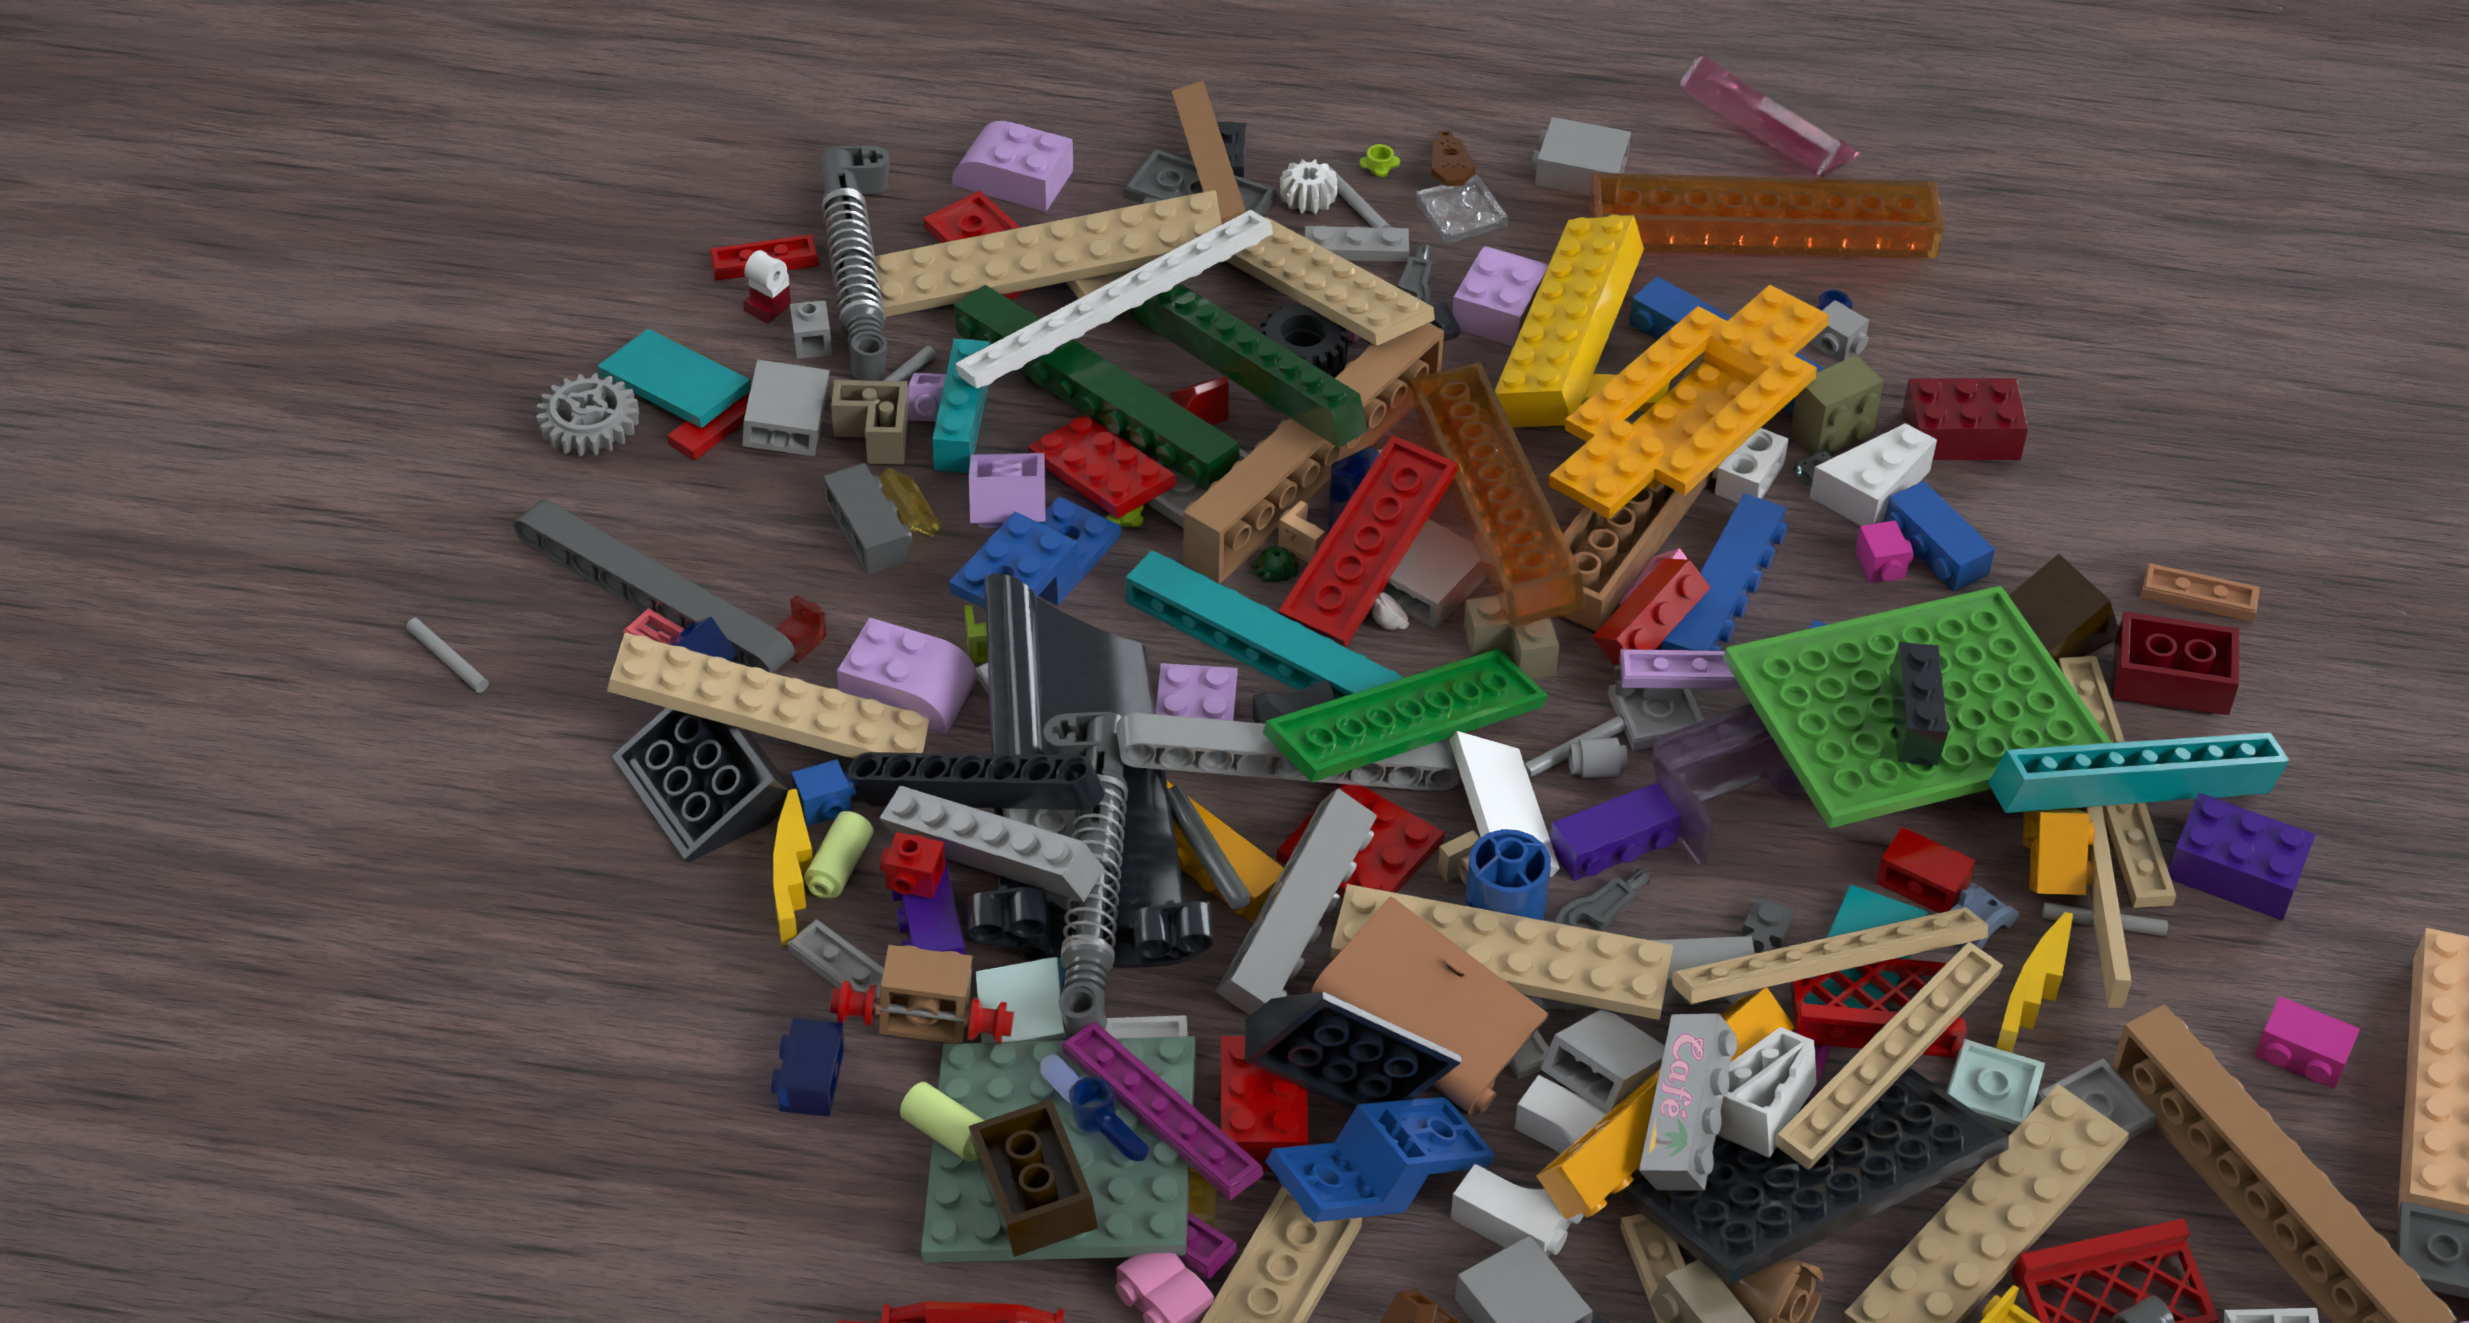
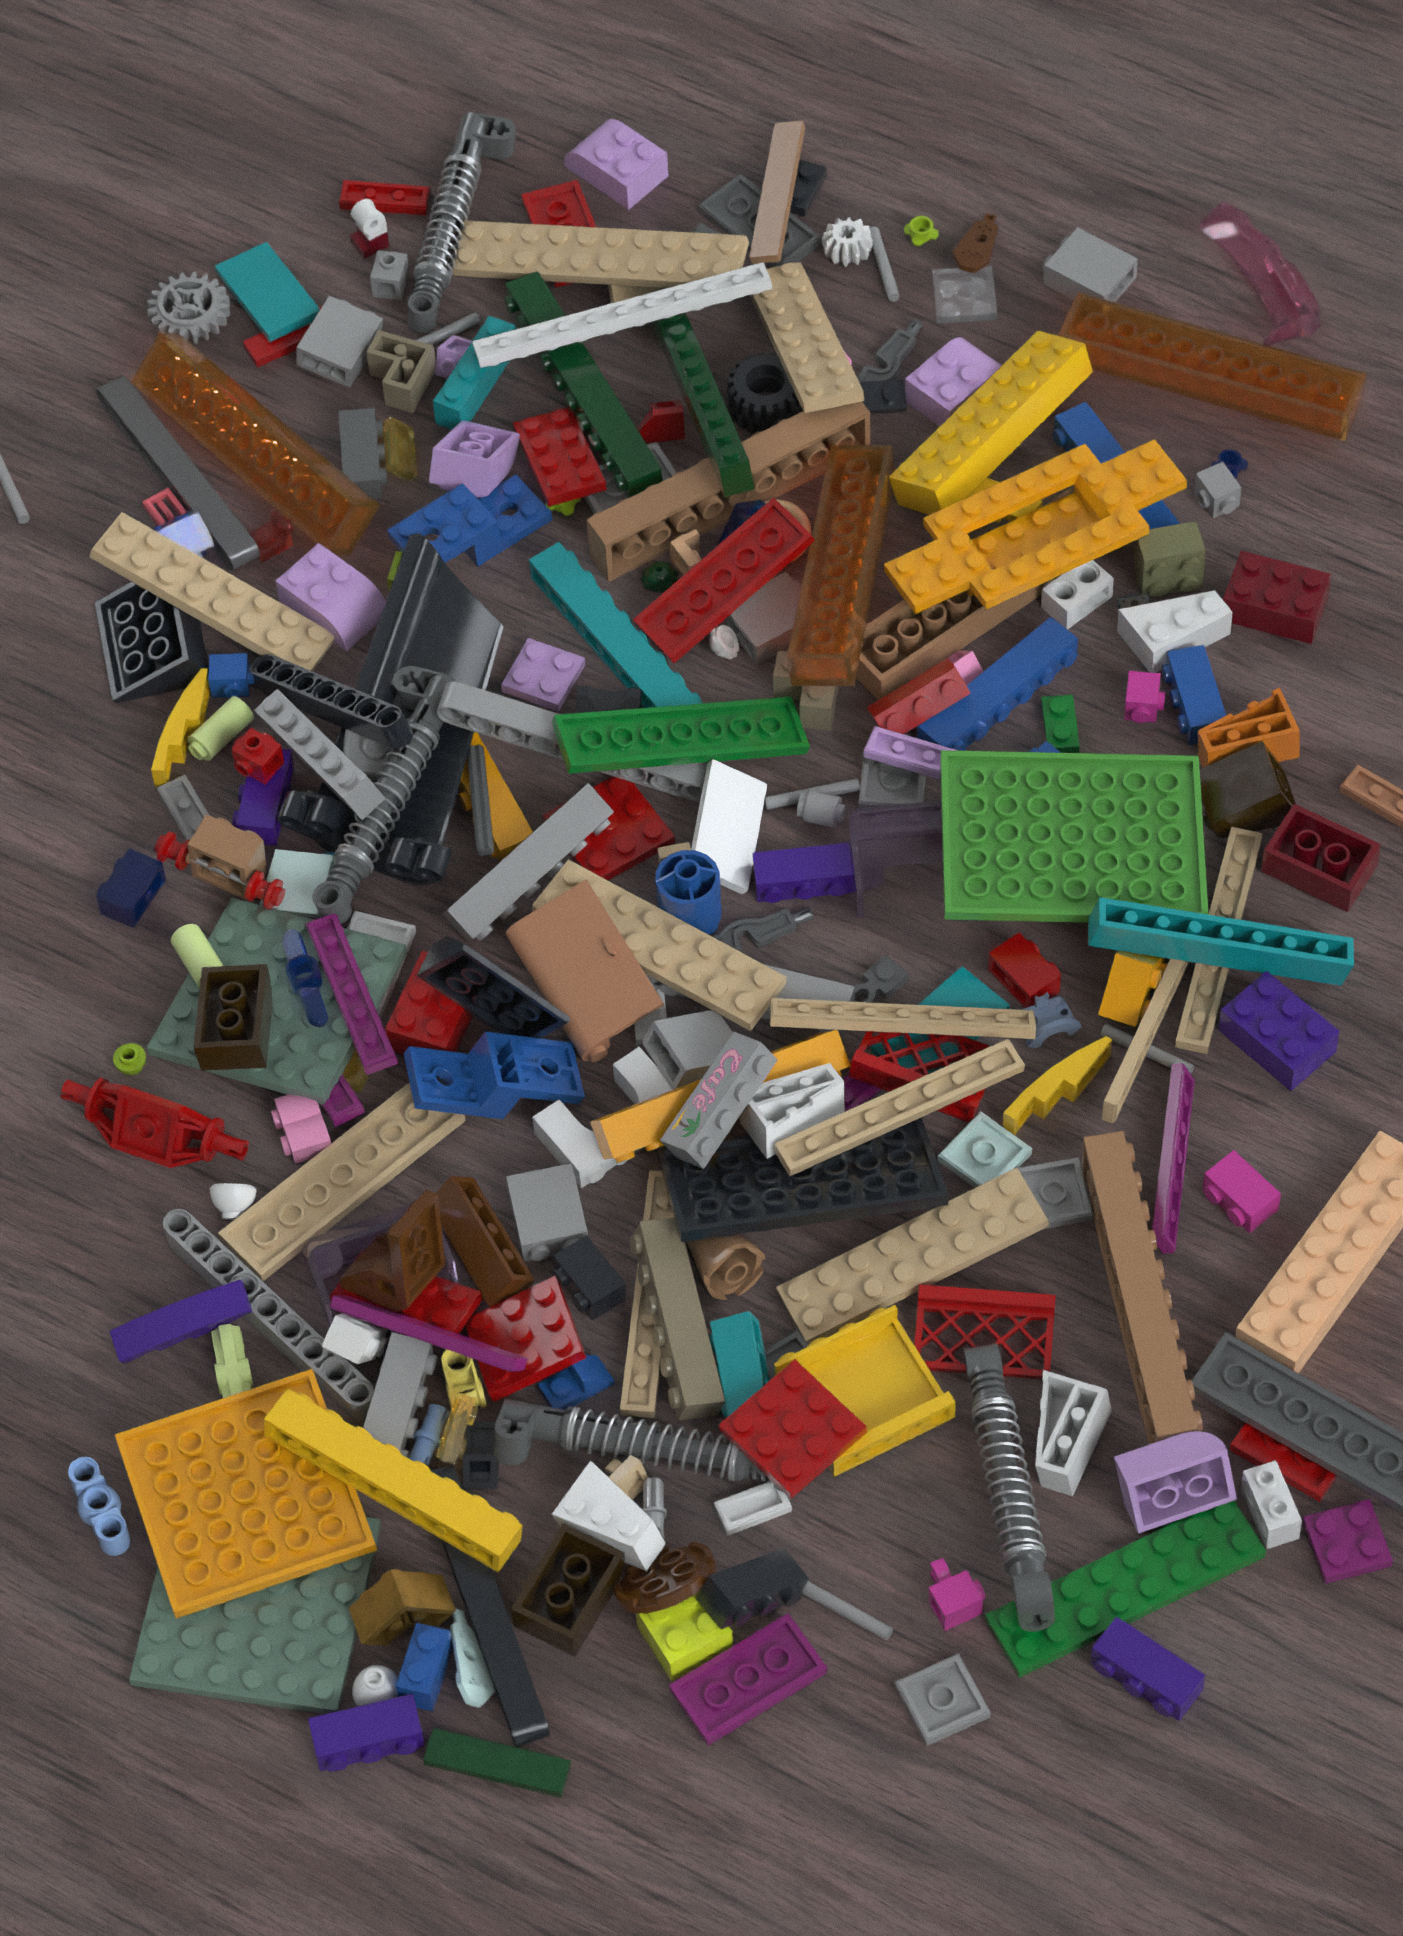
camera: 25 degrees right, 10 degrees up
(740, 531) = (255, 443): none -> clear orange brick
(905, 1283) = (133, 1065): none -> lime plate
(1362, 242) = (864, 304): light grey plate -> none
(1804, 600) = (1060, 723): none -> green plate
(1918, 703) = (1059, 839): black brick -> none
(2027, 549) = (1262, 721): none -> orange wedge
(2200, 1003) = (1173, 1158): none -> magenta tile

